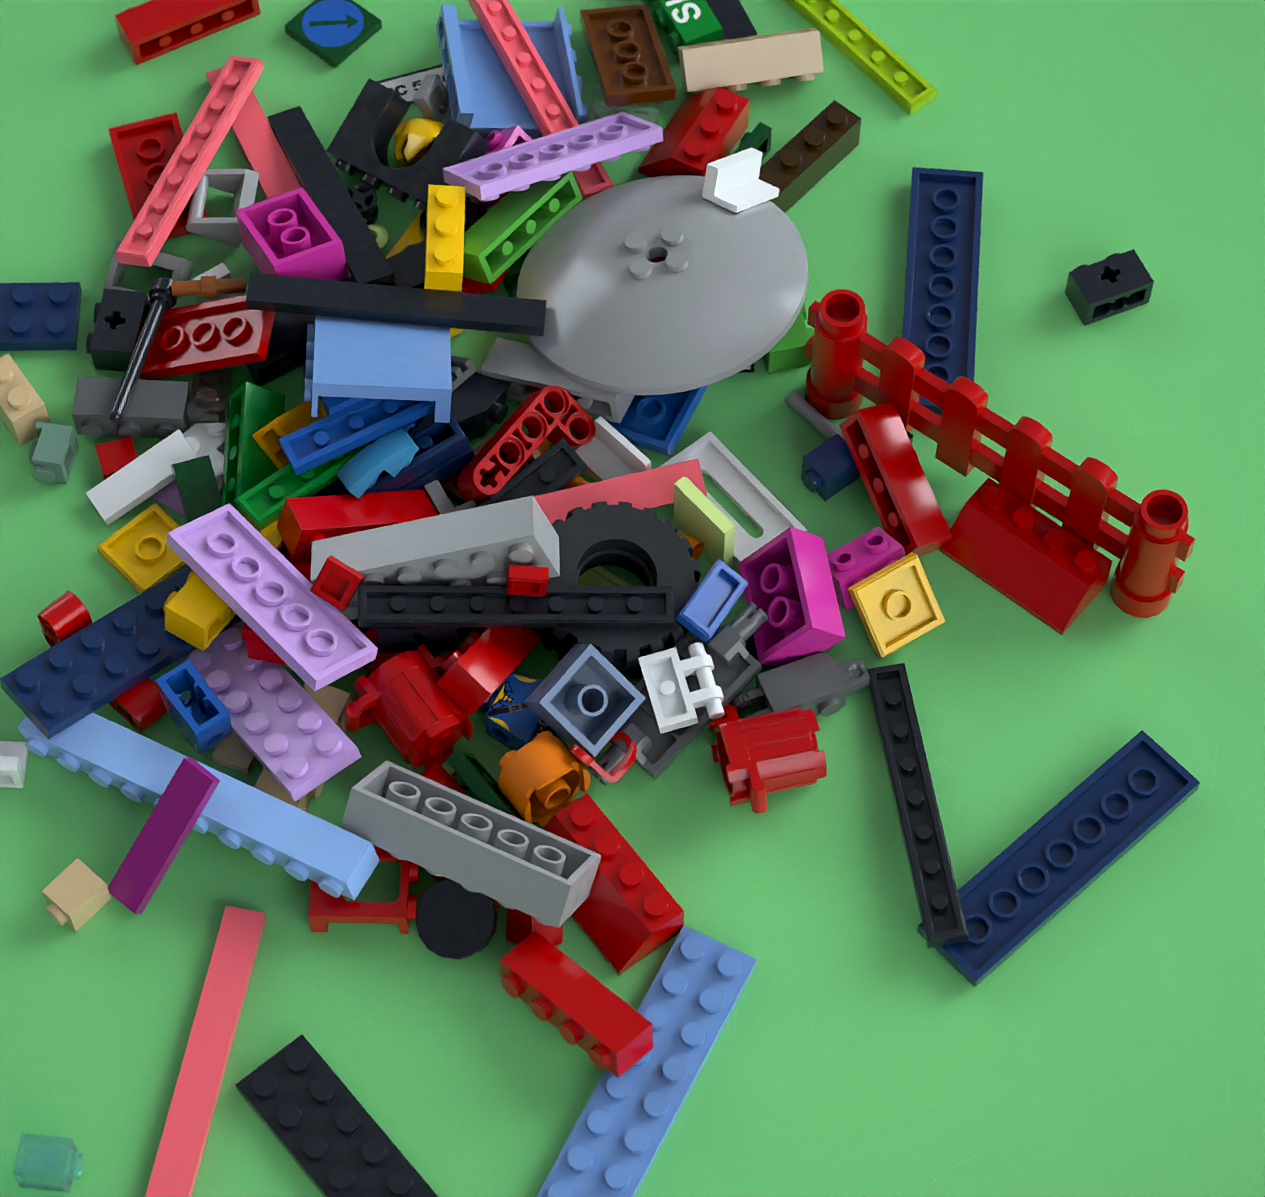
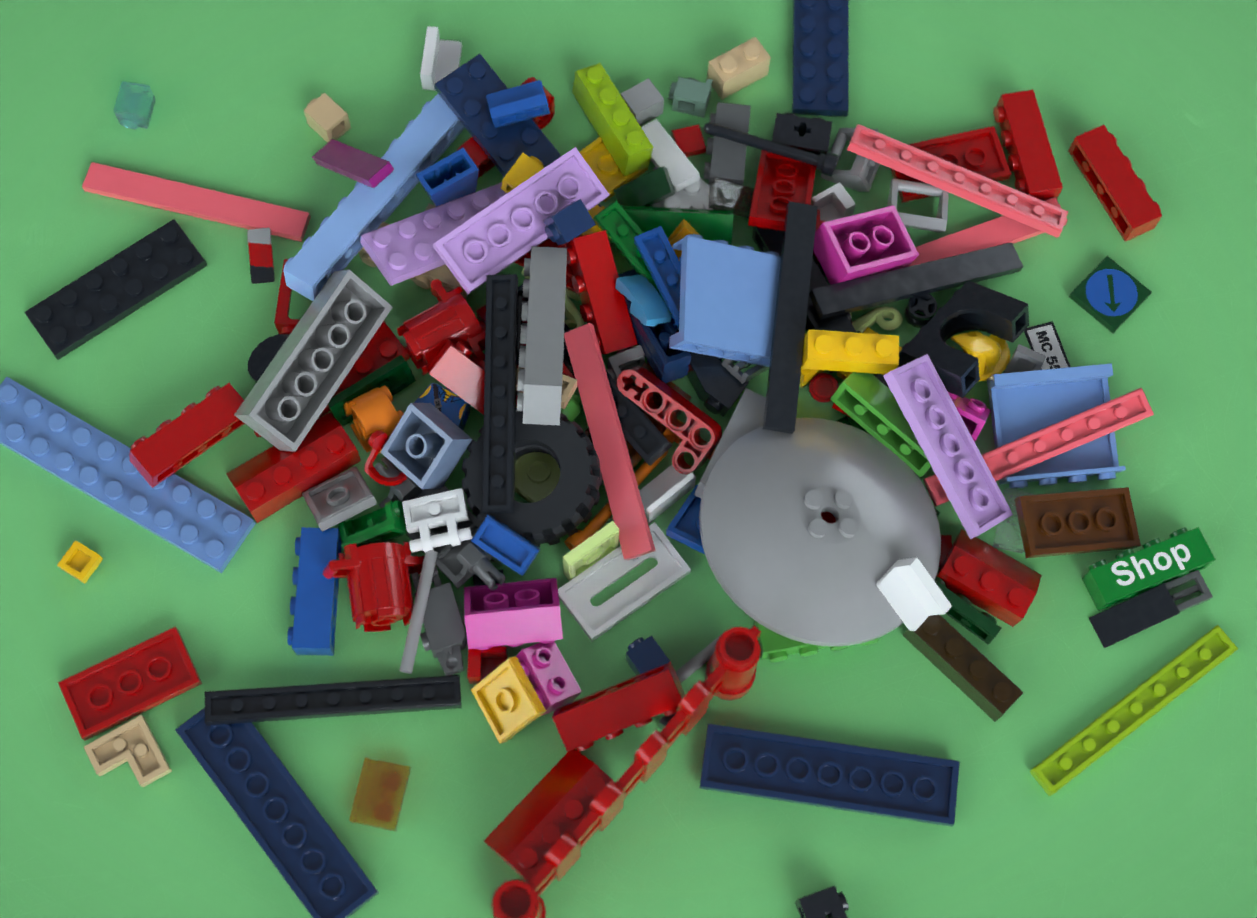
camera: 90 degrees right, 10 degrees up
(63, 509) = (644, 101): none -> light grey brick
(85, 622) = (517, 104): none -> blue panel
(90, 537) = (612, 119): none -> lime brick
(135, 95) = (1027, 145): none -> red brick
(208, 286) = (827, 191): dark orange bar -> none
(279, 534) = (568, 223): none -> dark blue brick
(291, 964) = (260, 255): none -> sticker
(337, 583) = (523, 261): red tile -> none
(527, 580) = (508, 392): red tile -> none
(653, 815) = (339, 498): none -> light grey tile
(687, 771) = (375, 527): none -> green hinge
(751, 60) = (1075, 628): tan brick -> none
(760, 1136) = (80, 562): none -> yellow plate
(778, 837) = (316, 596): none -> blue brick
(792, 700) = (418, 612): none -> light grey bar
(856, 644) = (483, 662): none -> red panel
(920, 1049) = (129, 683): none -> red plate
(998, 1037) = (129, 743): none -> tan plate
(1024, 742) = (380, 794): none -> clear orange plate

